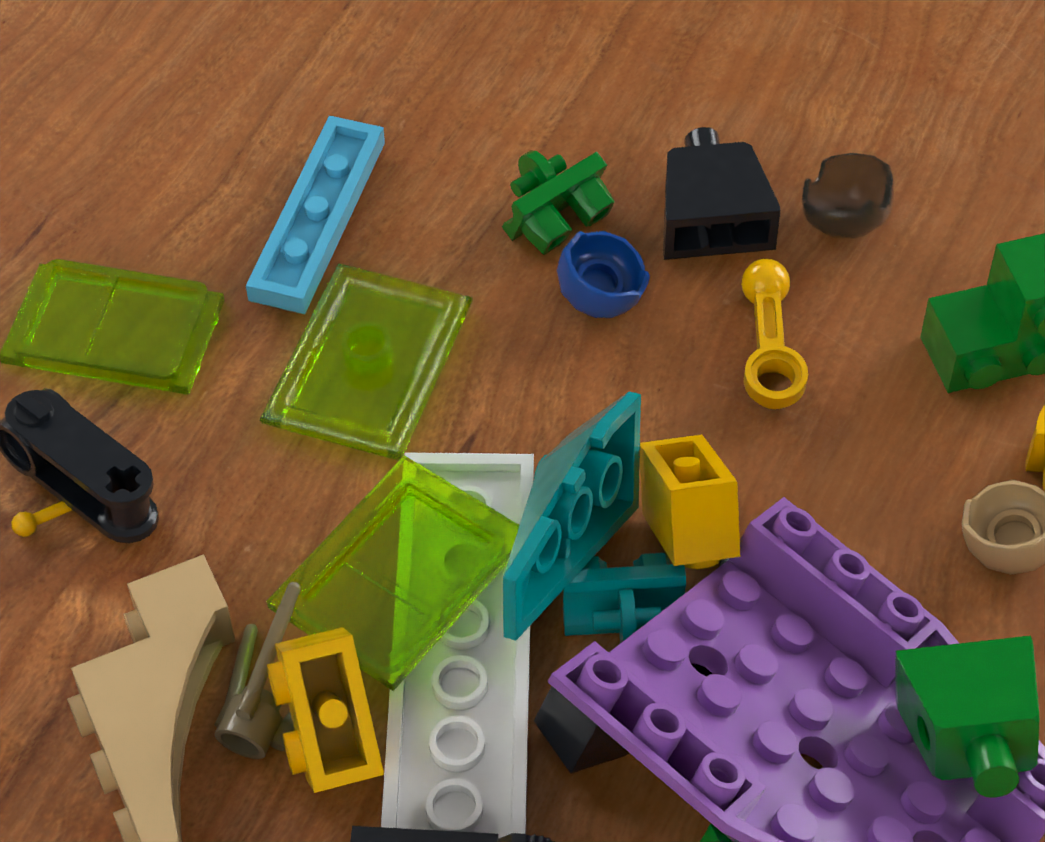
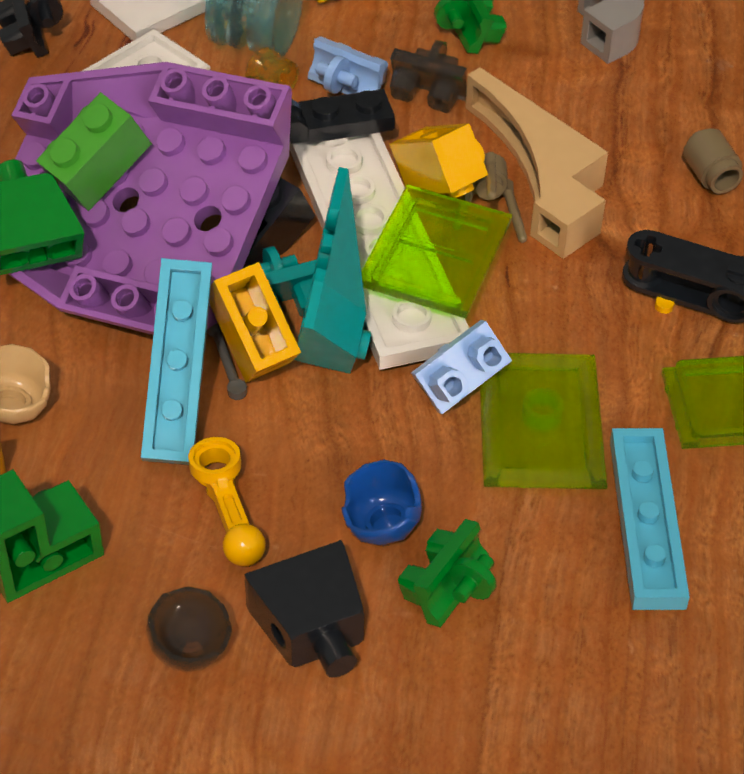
camera: 160 degrees right, 5 degrees down
(413, 398) = (461, 366): none -> light blue hips
(797, 461) = (176, 361): none -> medium azure plate
(861, 766) = (94, 151): none -> bright green brick

